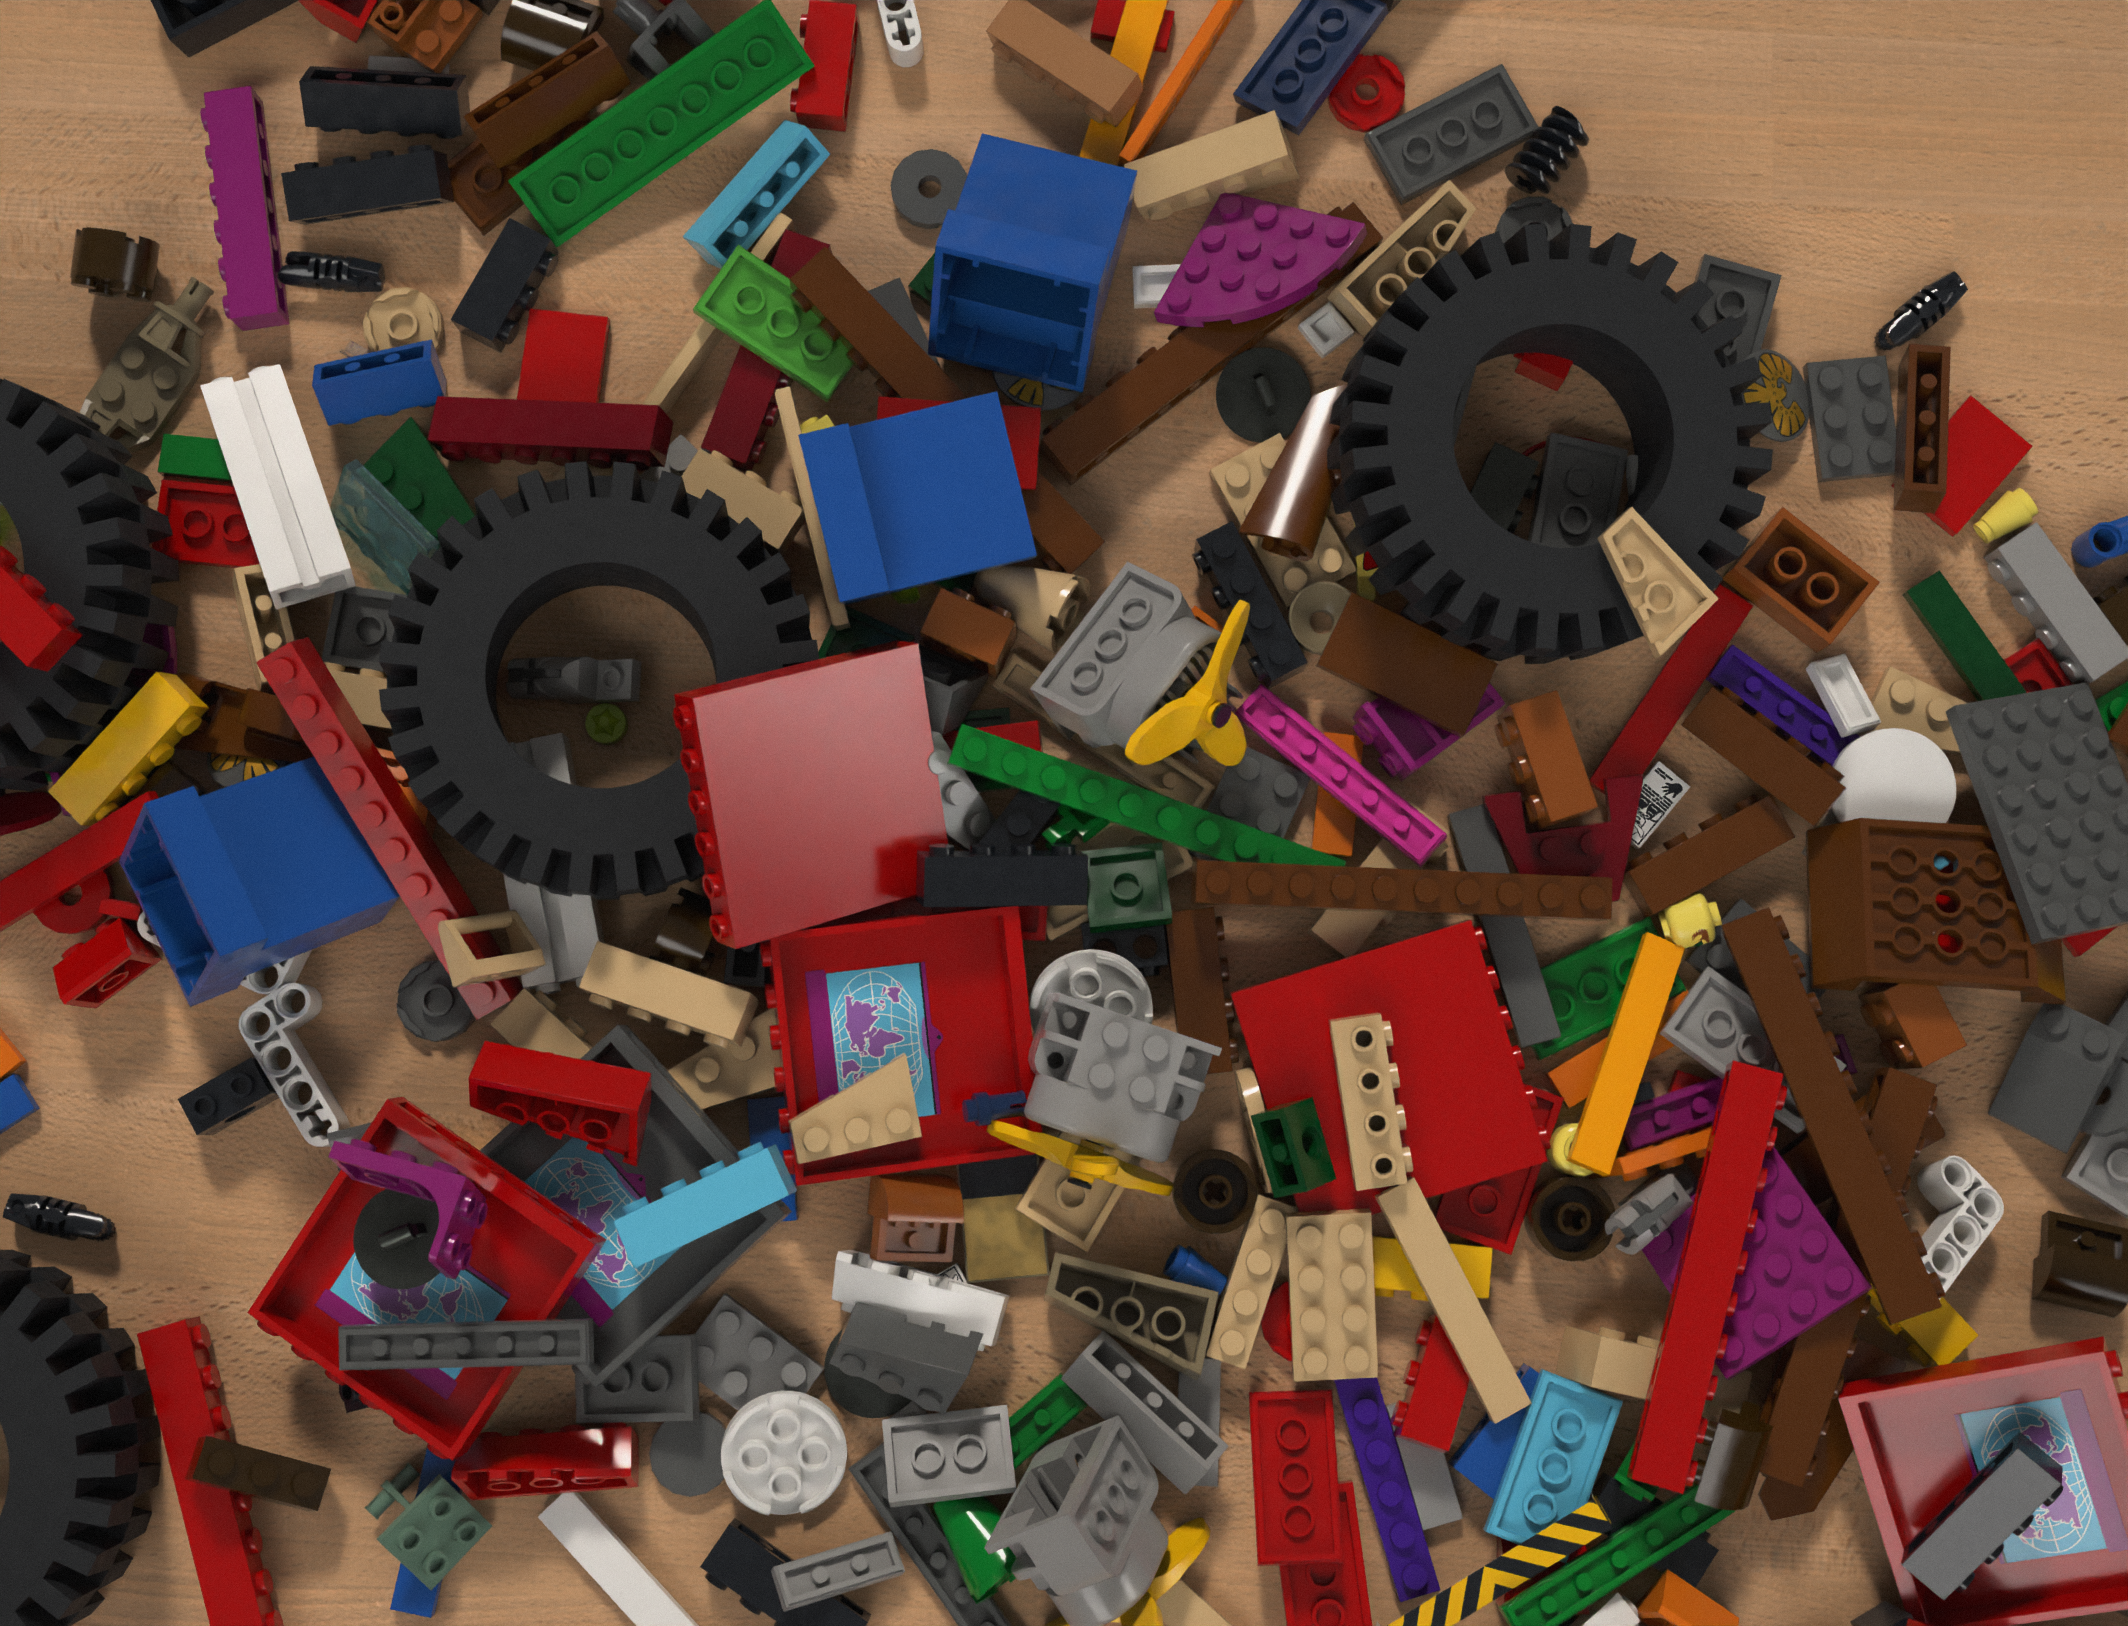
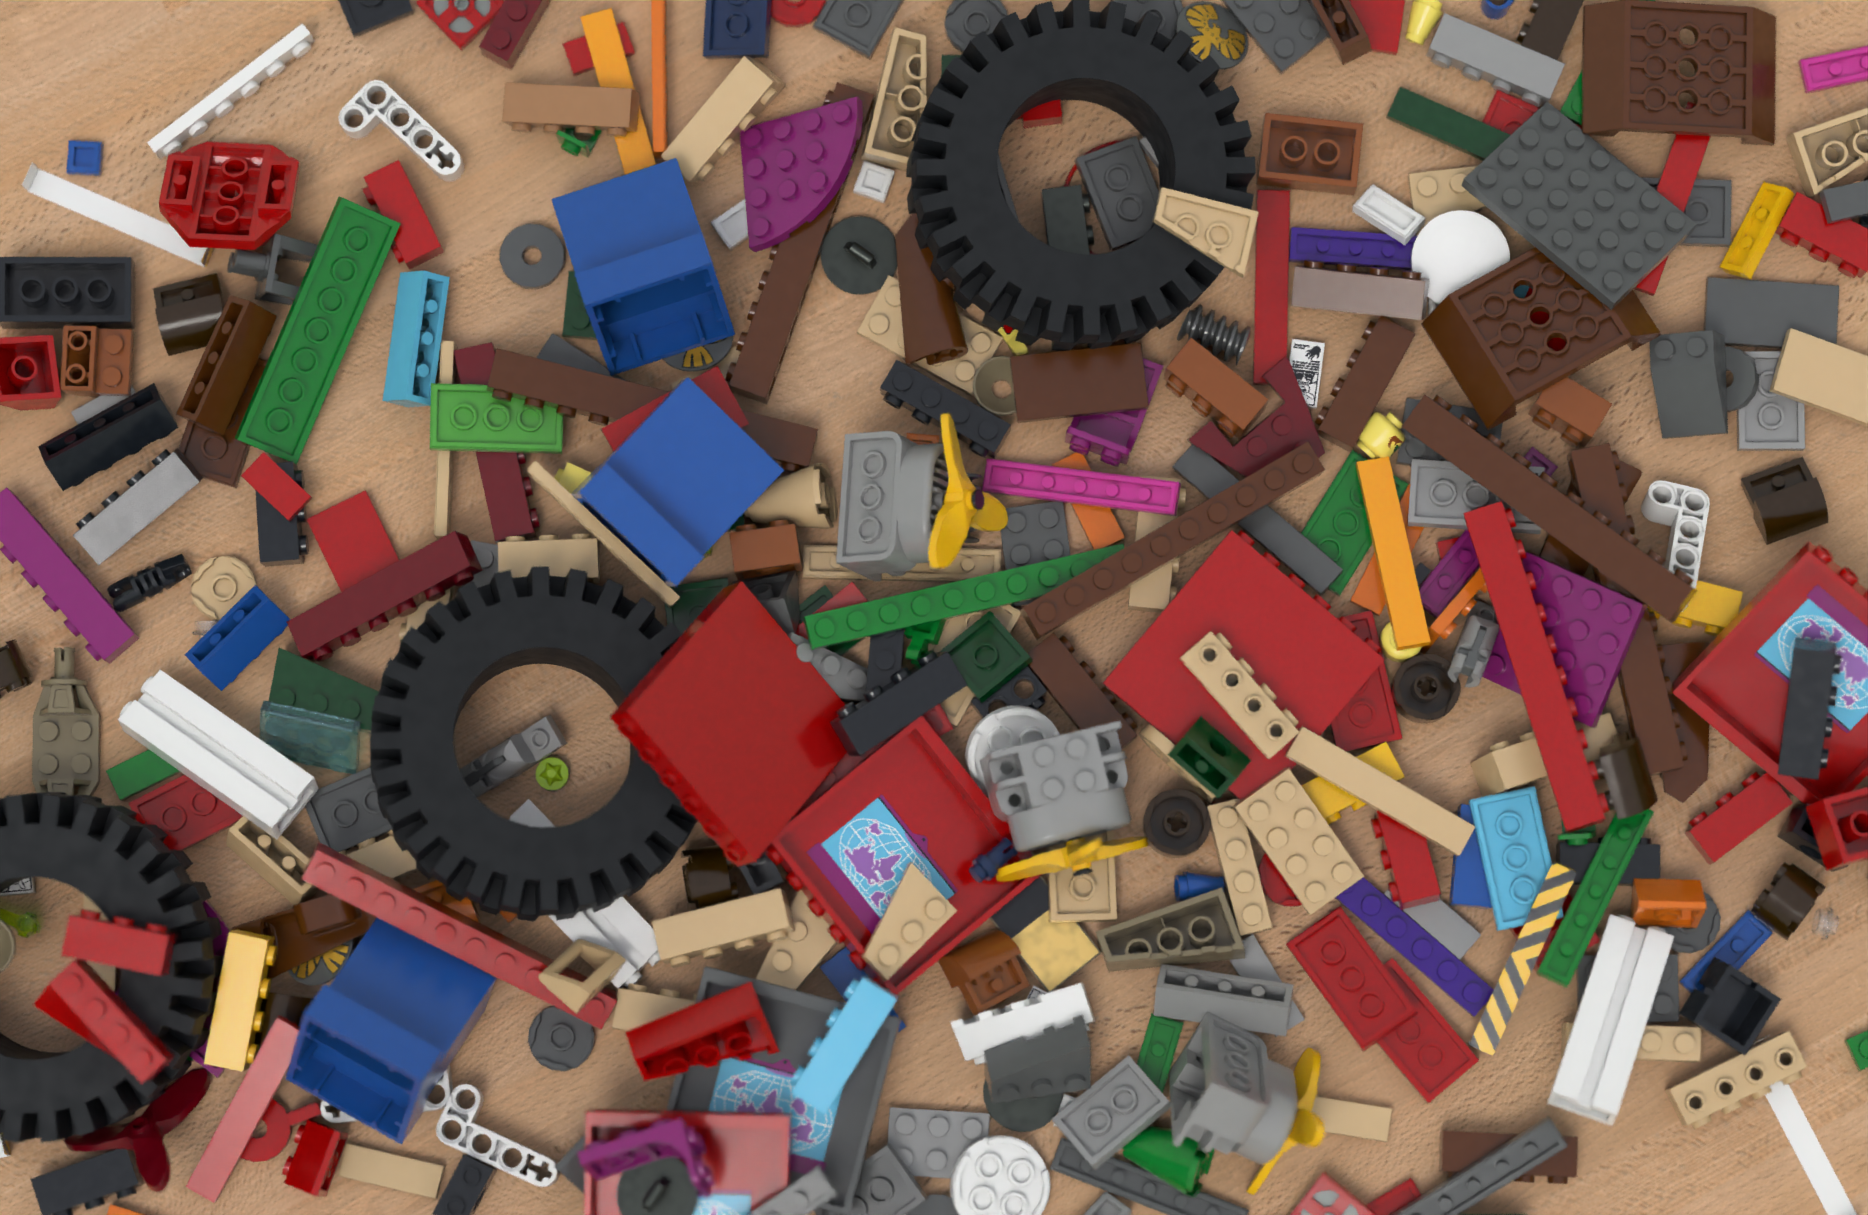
camera: 30 degrees left, 0 degrees up
(176, 1025) = (391, 1171): none -> tan tile
(515, 252) = (276, 486): none -> red tile
(1044, 104) = (575, 146): none -> green bracket
(1582, 704) = (1215, 333): none -> dark grey piece
(1820, 1572) = (1737, 816): none -> red brick

